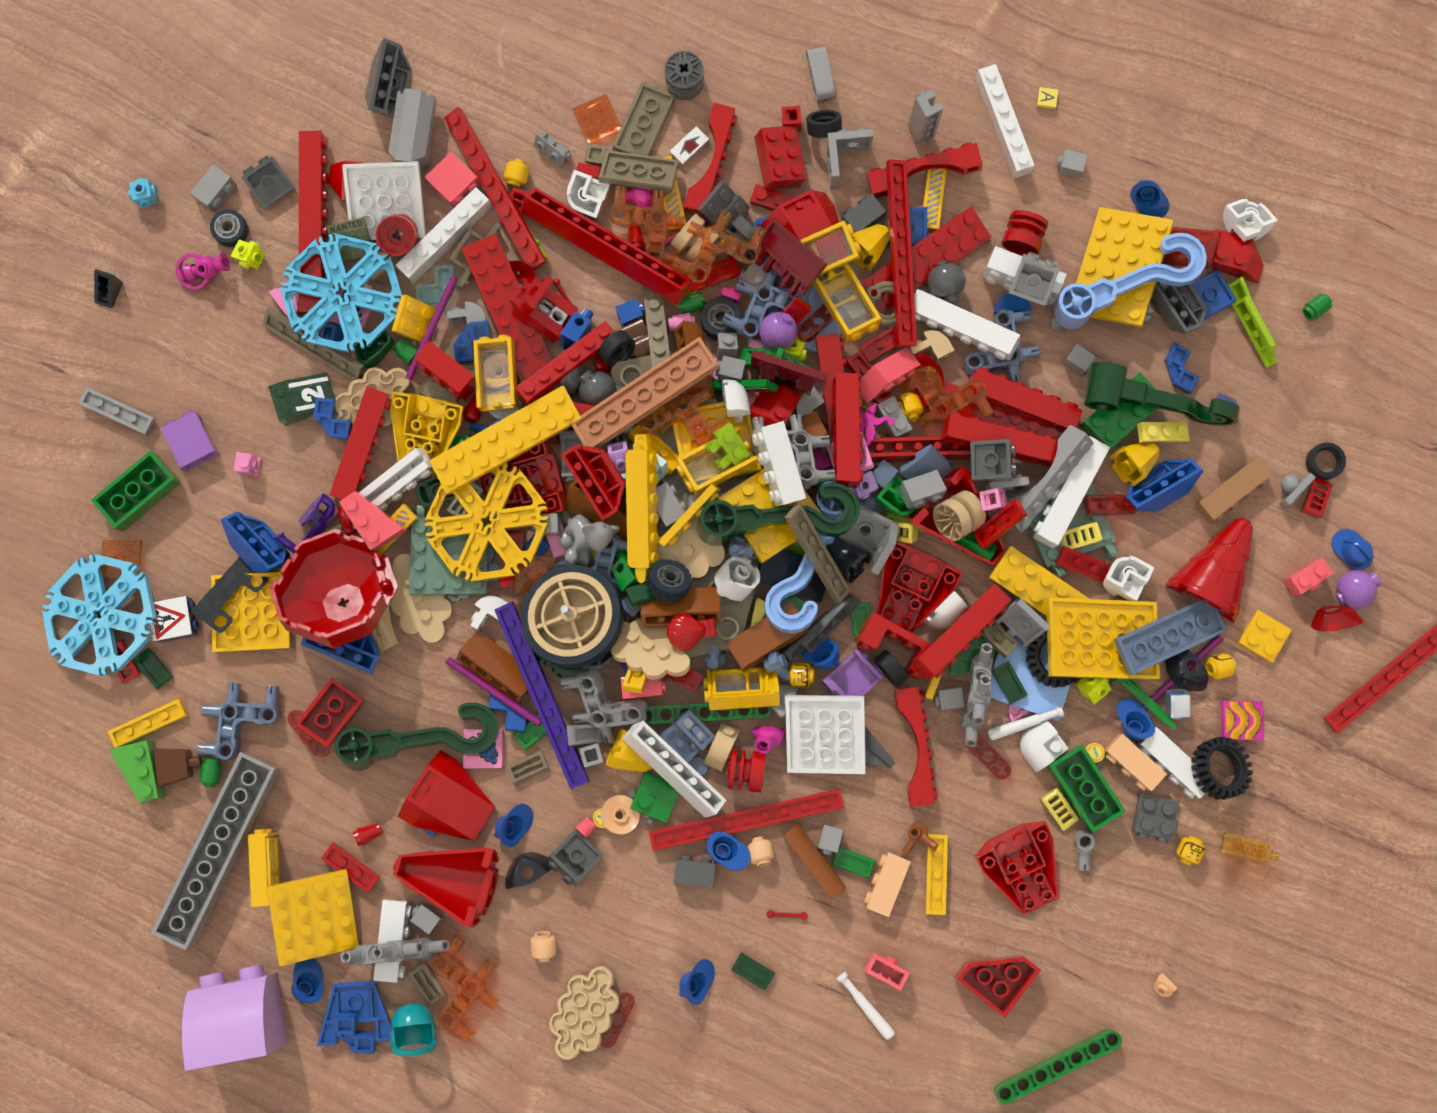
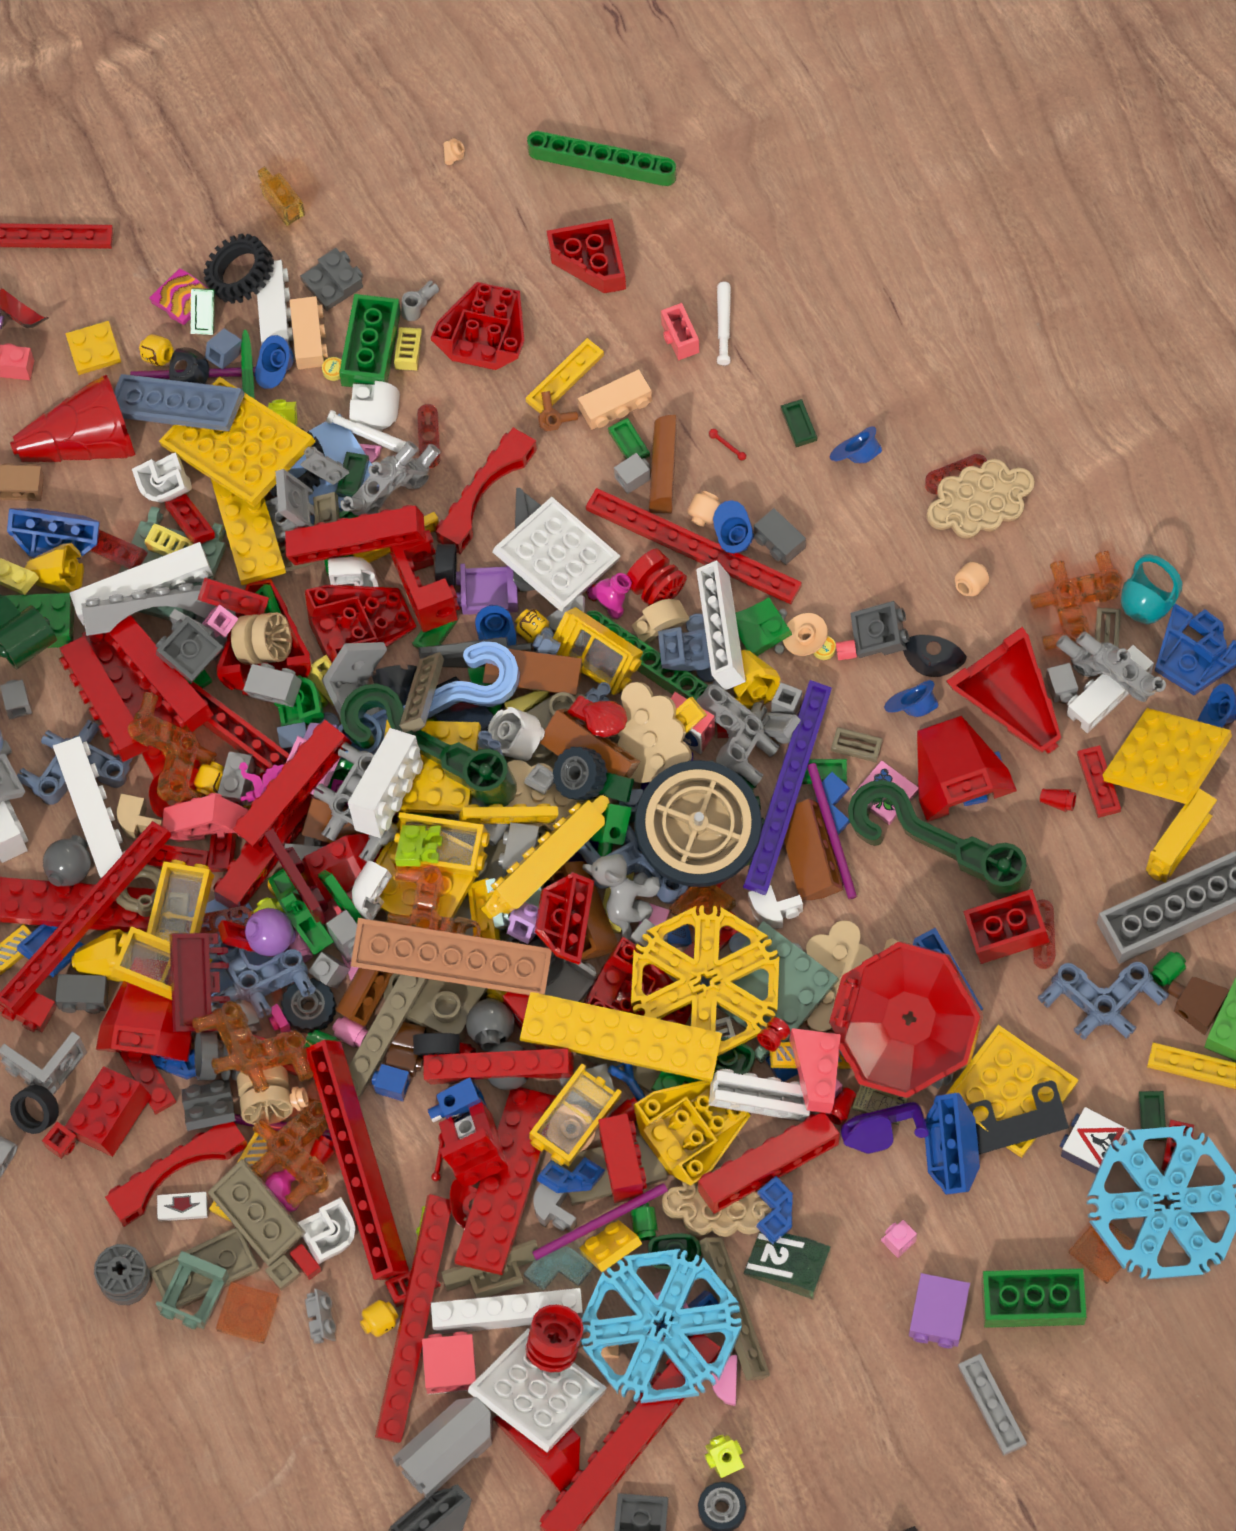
camera: 140 degrees left, 15 degrees down
(205, 267) = (780, 1478): dark pink piece -> none
(352, 228) = (597, 1389): olive tile -> none
(414, 515) = (775, 1032): none -> red wheel
(641, 115) = (187, 1264): none -> sand green panel
(670, 250) = (299, 1098): none -> light nougat plate
(694, 560) = (540, 779): none -> light grey tile
(926, 461) = (244, 707): sand blue slope -> none
(949, 699) = (418, 497): light grey brick -> none
(1011, 302) = (29, 804): blue tile -> none
(1024, 670) = (323, 466): none -> light grey hinge
(1191, 850) = (328, 230): yellow head -> none
(1216, 718) = (202, 311): none -> tile

